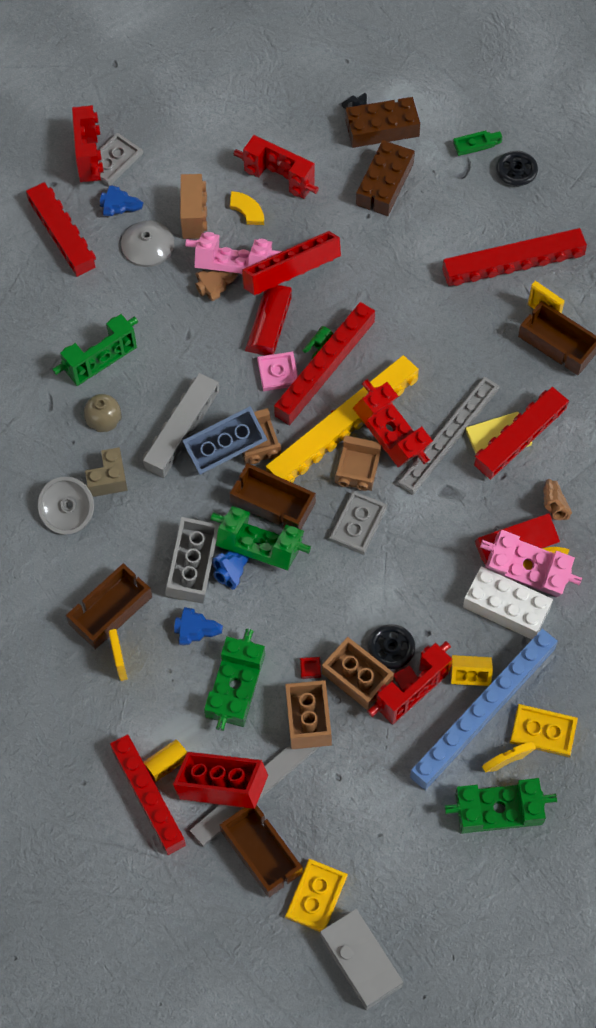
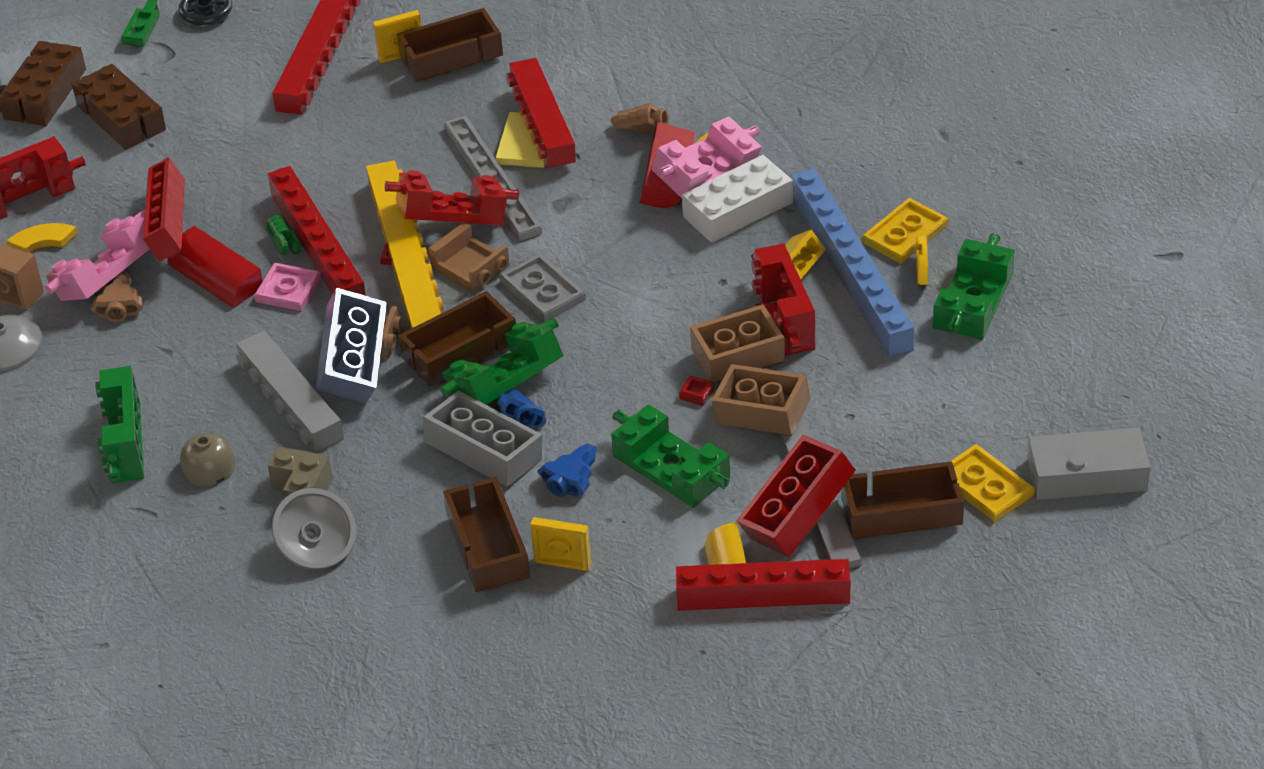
camera: 60 degrees left, 20 degrees down
(404, 636) = (719, 306): black plate -> none

